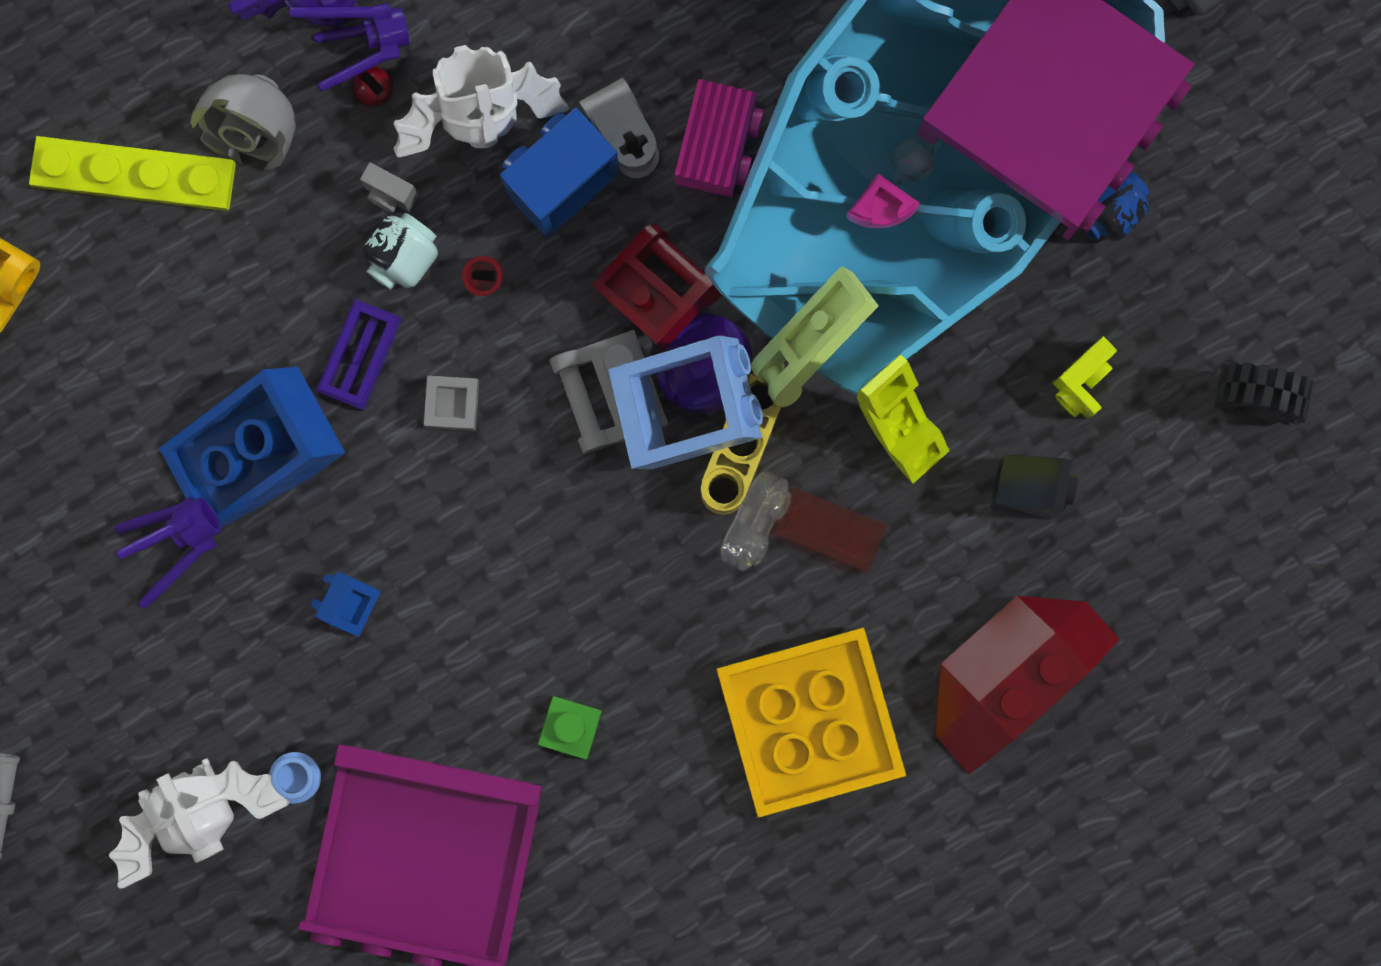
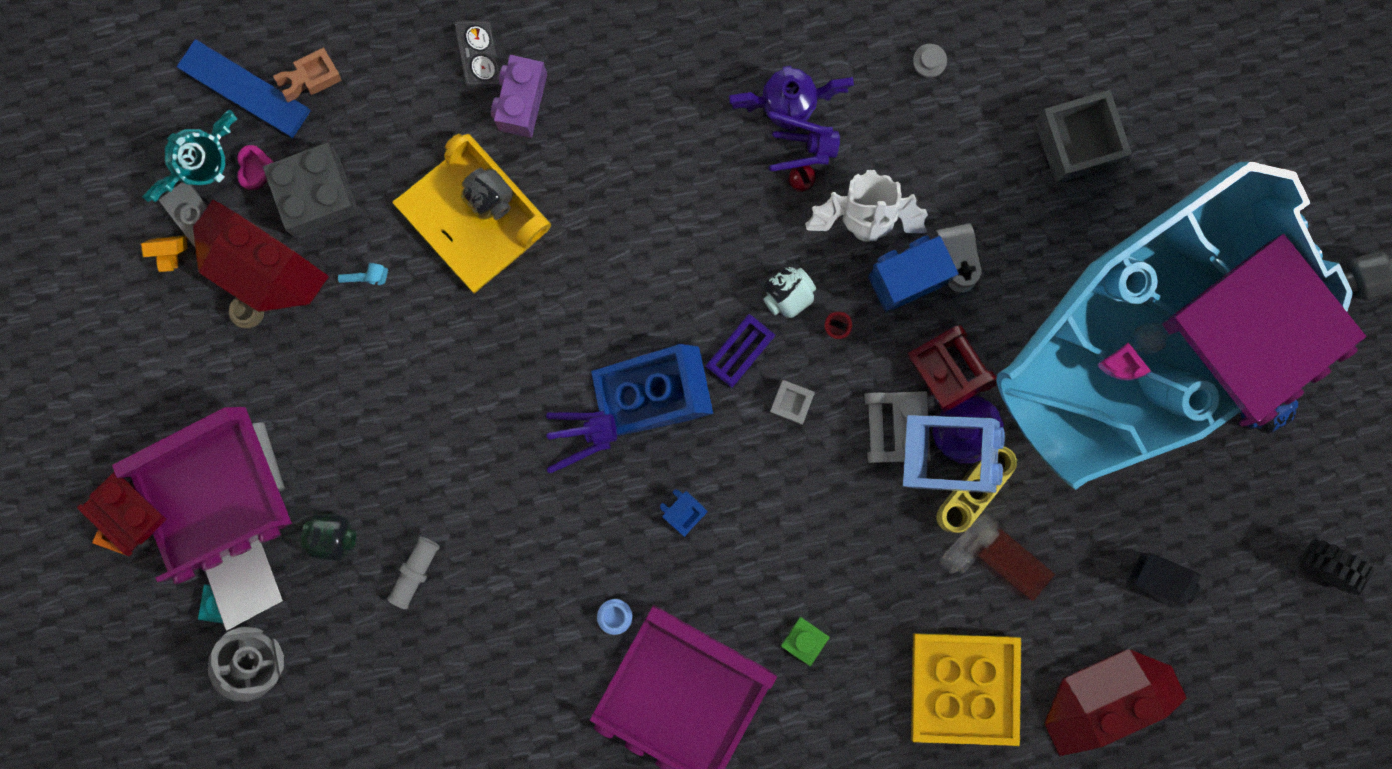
camera: 15 degrees right, 0 degrees up
(132, 173) = (628, 186): neon yellow plate -> none
(190, 816) = (540, 621): white helmet -> none
(242, 110) = (712, 168): light grey cylinder -> none
(387, 189) = (793, 248): light grey plate -> none
(717, 138) = (1020, 282): dark pink brick -> none
(813, 336) = (1052, 436): yellowish green plate -> none
(900, 421) = (1088, 509): neon yellow slope -> none
(1089, 369) = (1219, 512): neon yellow bracket -> none

